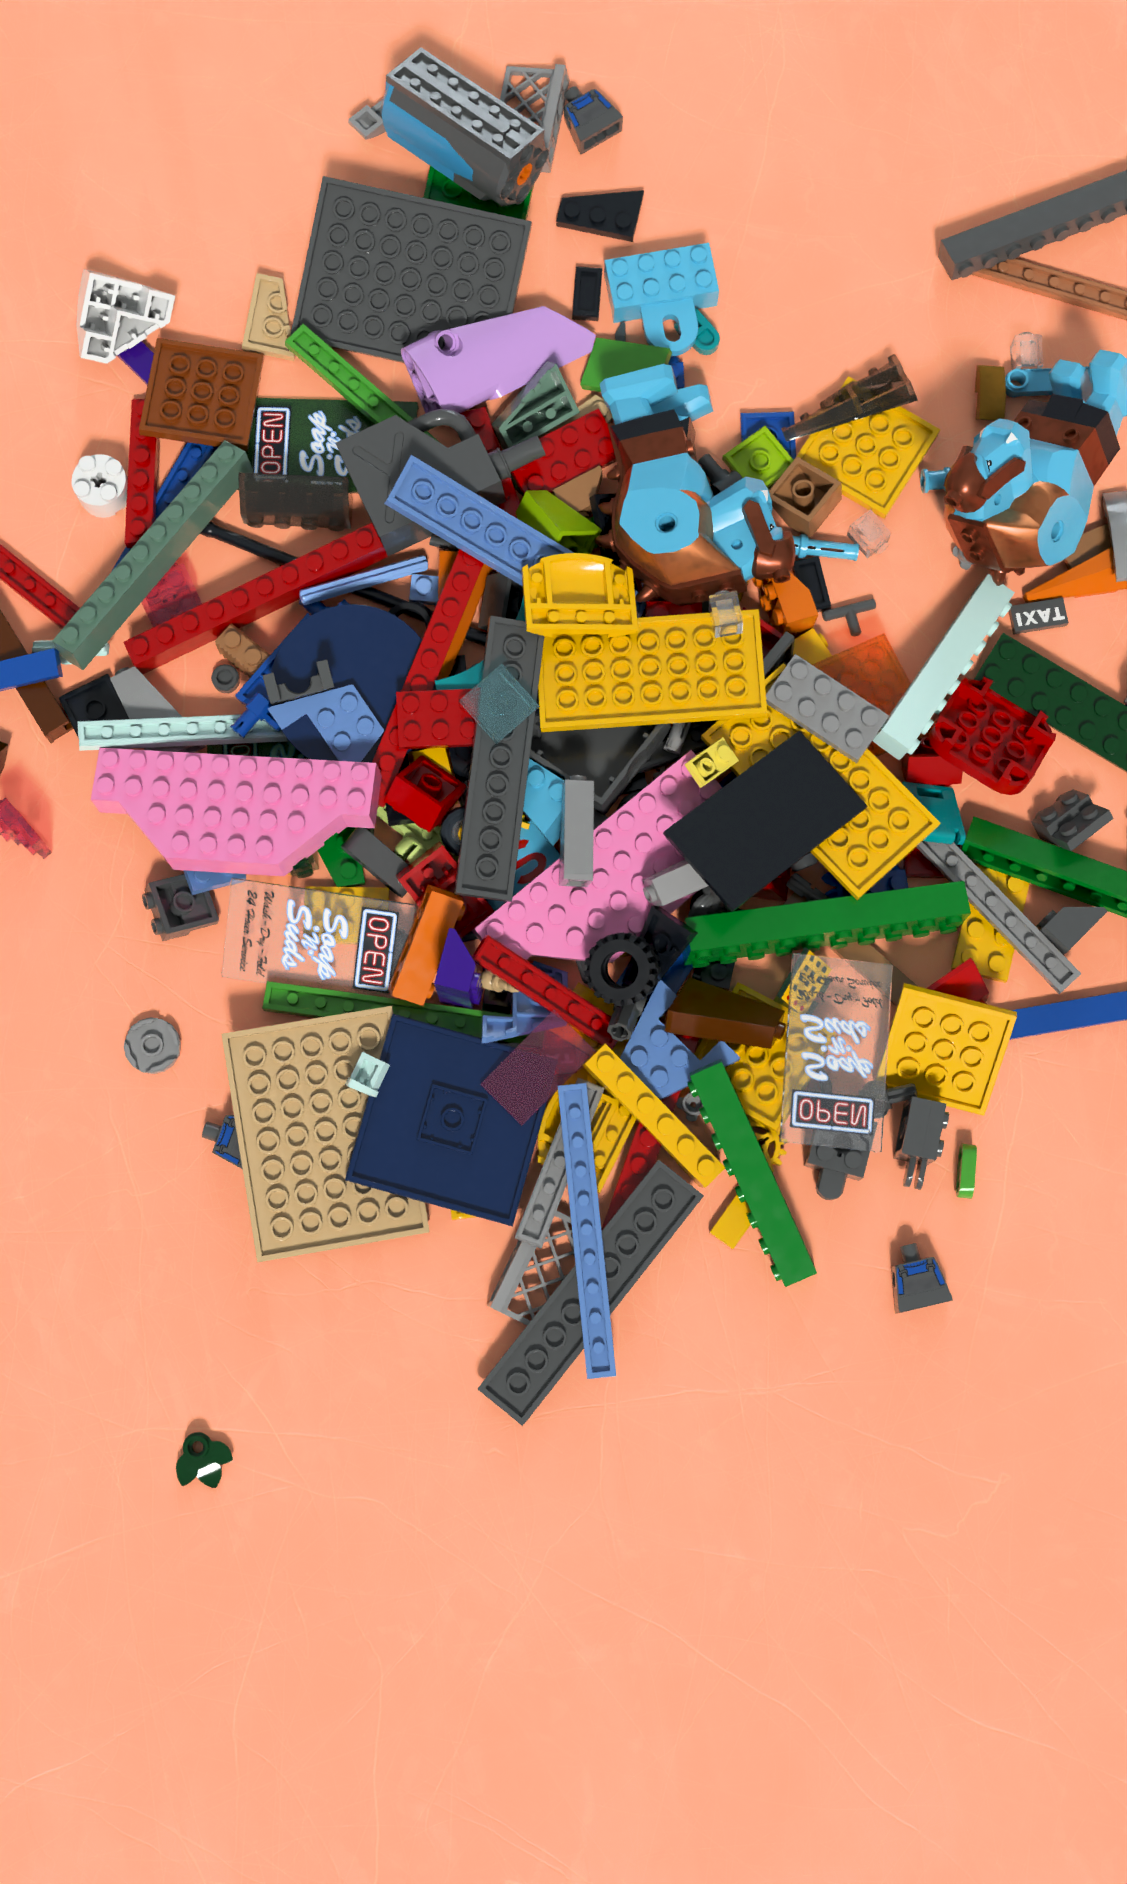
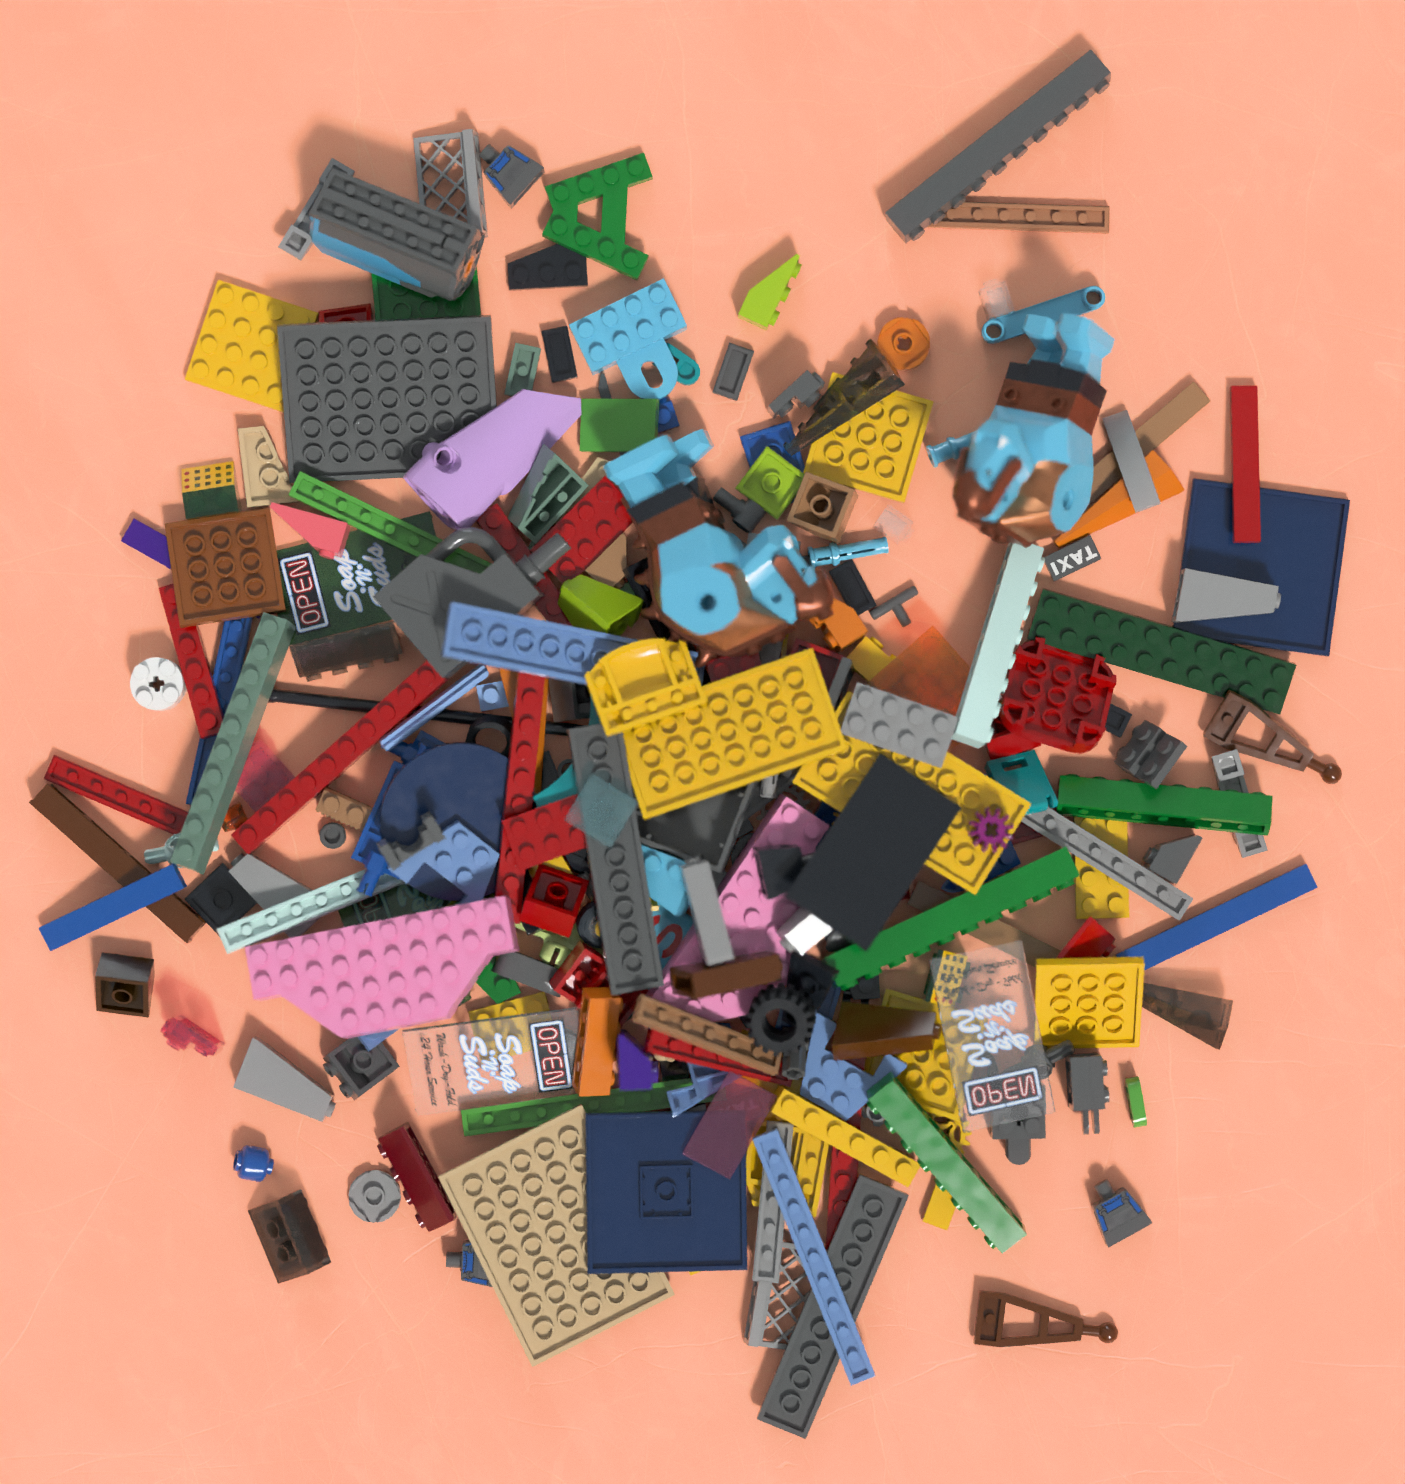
camera: 20 degrees left, 10 degrees up
(39, 975) = (253, 1163): none -> blue head
(52, 1059) = (289, 1236): none -> clear smoke slope
(91, 898) = (279, 1081): none -> light grey slope
(117, 314) = (117, 509): white brick -> none
(130, 631) = (234, 818): none -> clear orange slope
(201, 1034) = (418, 1177): none -> dark red slope
(211, 324) = (210, 490): none -> clear green slope
(280, 205) = (241, 346): none -> yellow plate
(306, 389) = (321, 532): none -> coral slope
(368, 1075) = (580, 1177): light aqua tile -> none
(541, 963) = (704, 1034): none -> medium nougat tile
(549, 291) = (522, 368): none -> sand green plate
(578, 904) = (742, 972): none -> reddish brown slope
(660, 811) = (779, 867): none -> black torso
(663, 205) = (611, 184): none -> green plate
(711, 762) = (807, 811): light yellow slope -> none
(725, 613) = (783, 664): clear brick -> none
(750, 354) = (733, 372): none -> dark grey tile
(755, 1354) = (991, 1319): none -> reddish brown plate
(801, 291) = (763, 299): none -> lime slope
(803, 888) = (933, 890): dark grey piece -> none
(810, 382) = (802, 391): none -> dark grey plate
(896, 824) = (1000, 830): none -> magenta gear
(931, 359) = (905, 329): none -> orange plate
(991, 391) = (972, 349): pearl gold slope -> none
(1043, 782) = (1117, 720): none -> black plate
(1051, 1096) = (1195, 1013): none -> clear smoke wedge

